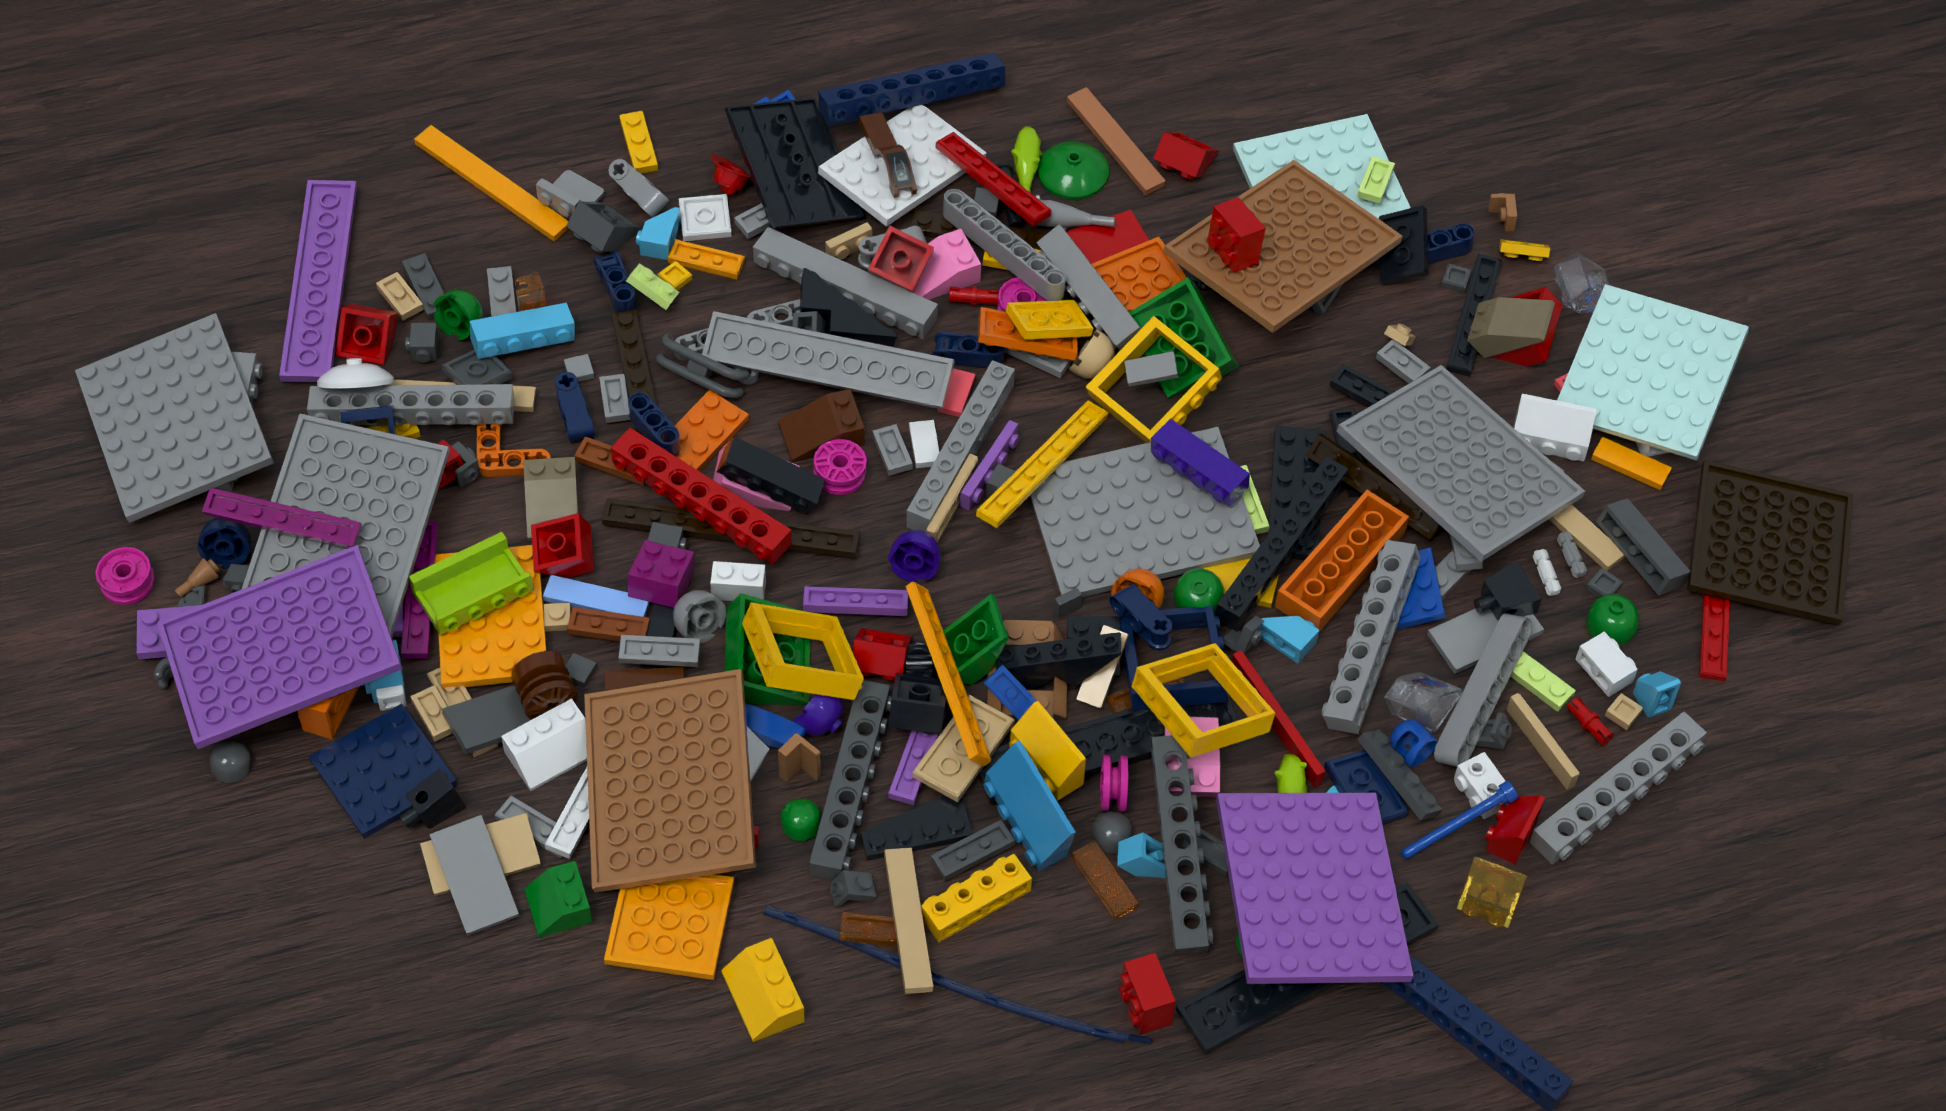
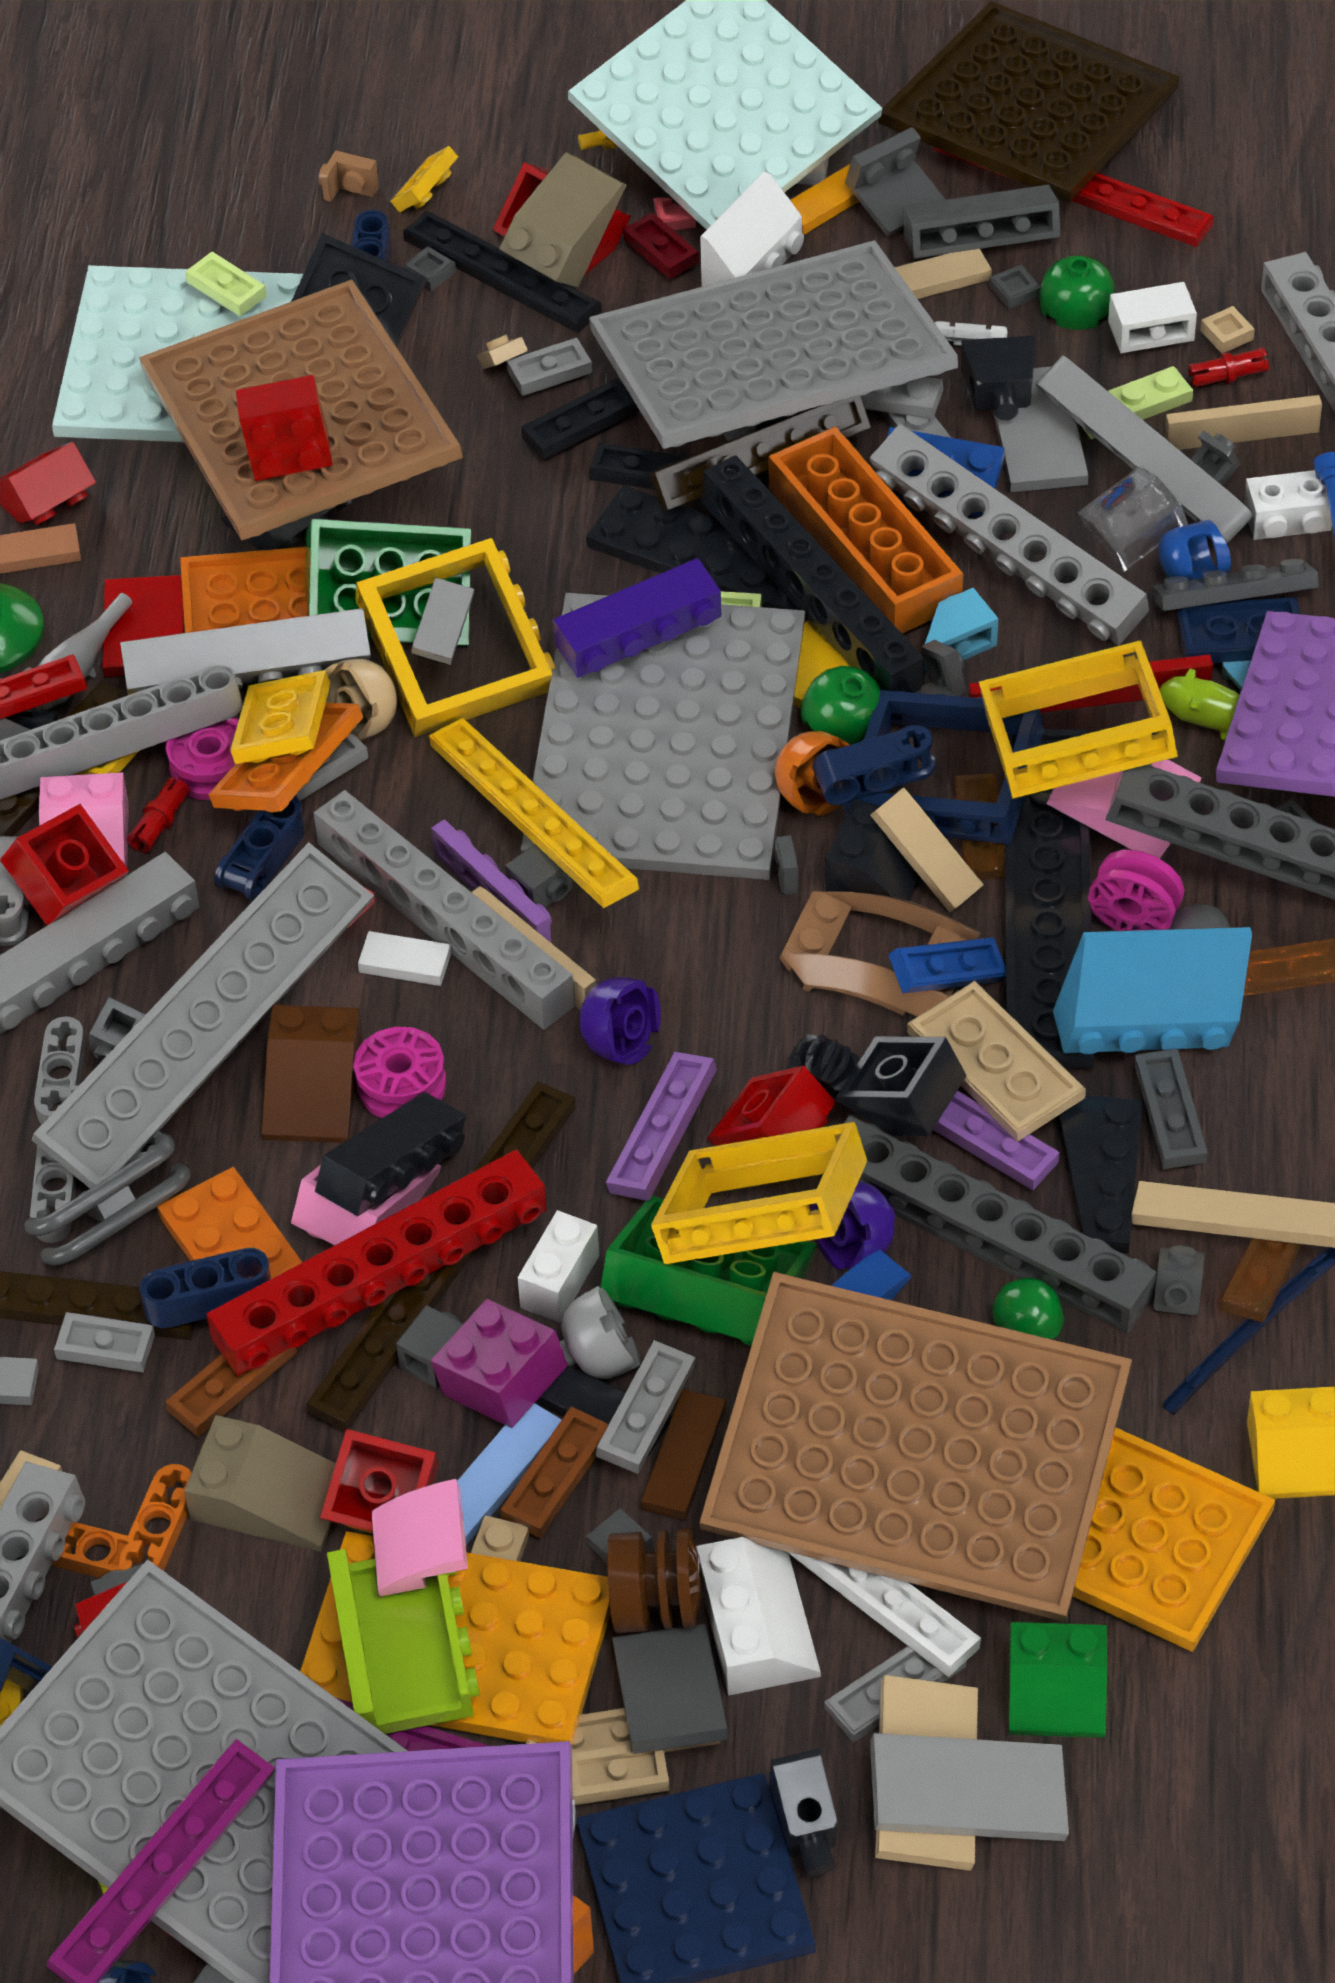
camera: 65 degrees left, 5 degrees down
(525, 569) = (419, 1537): none -> bright pink slope
(573, 407) = (96, 1405): dark blue piece -> none
(798, 755) = (935, 1263): medium nougat panel -> none
(841, 313) = (134, 975): black slope -> none
(892, 449) = (399, 998): light grey plate -> none
(948, 674) = (870, 1026): light orange tile -> none
(976, 897) = (1254, 1121): yellow brick -> none
(977, 640) = (828, 972): green slope -> none
(1050, 750) = (1040, 939): yellow slope -> none
(1066, 659) = (908, 878): black slope -> none
(1141, 856) = (1263, 906): medium azure slope -> none
(1536, 382) = (660, 245): none -> dark red plate
(1572, 554) = (954, 300): light grey axle -> none
(1580, 282) = (519, 141): clear slope -> none
(1650, 488) = (889, 178): none -> dark grey bracket
(1656, 692) = (1218, 278): medium azure slope -> none

